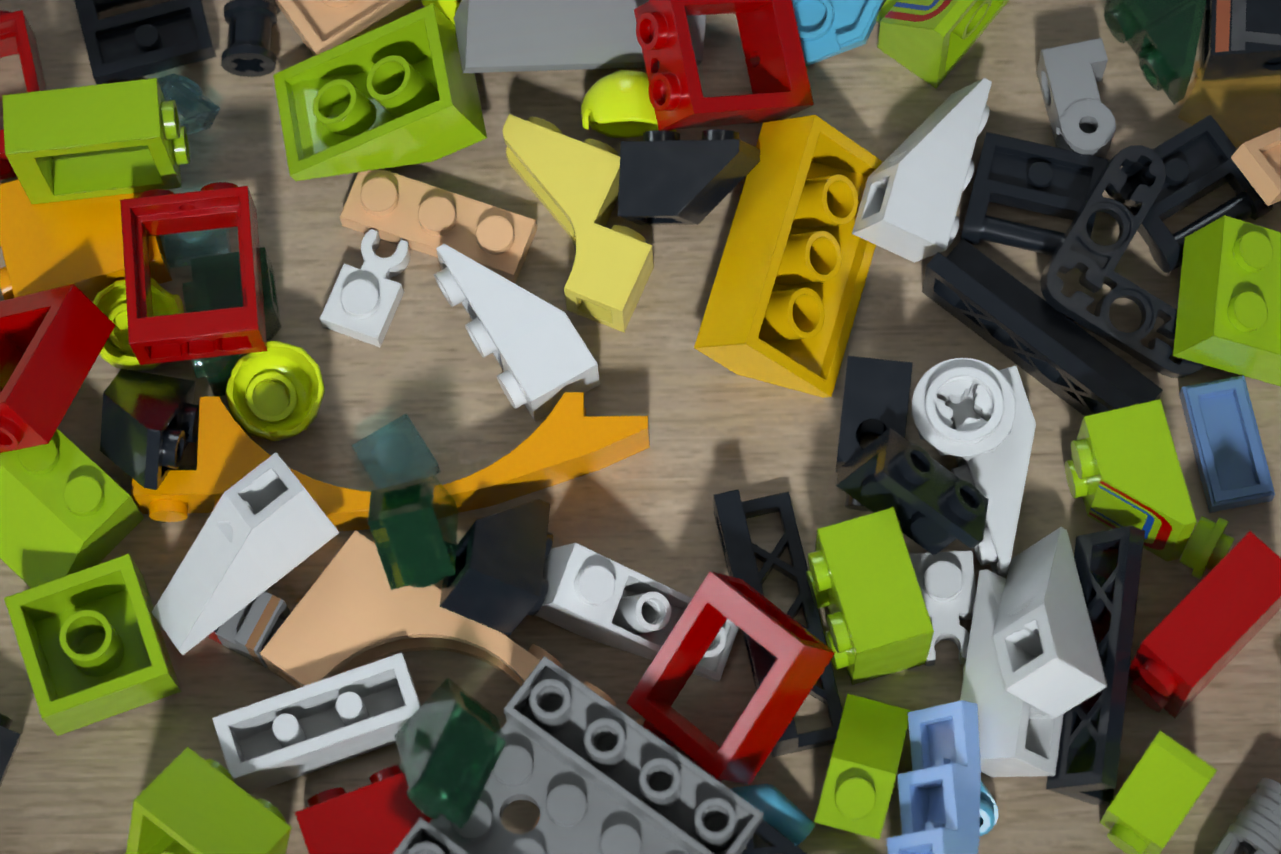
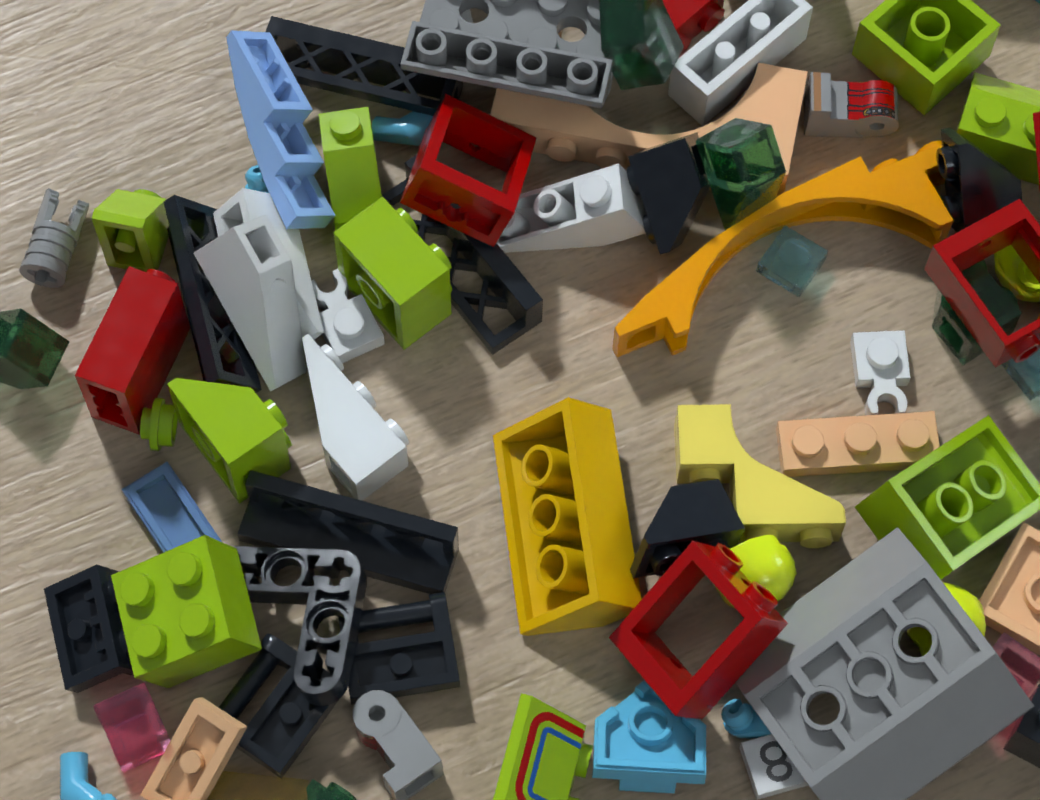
camera: 150 degrees right, 5 degrees down
(245, 547) = (851, 115): white slope -> none
(275, 391) = (898, 258): neon yellow hair -> none
(525, 334) = (735, 369): white slope -> none
(872, 403) = (444, 393): black torso -> none
(917, 190) = (495, 615): white slope -> none
(927, 497) = (385, 337): black bracket -> none
(951, 382) = (363, 409): white gear -> none

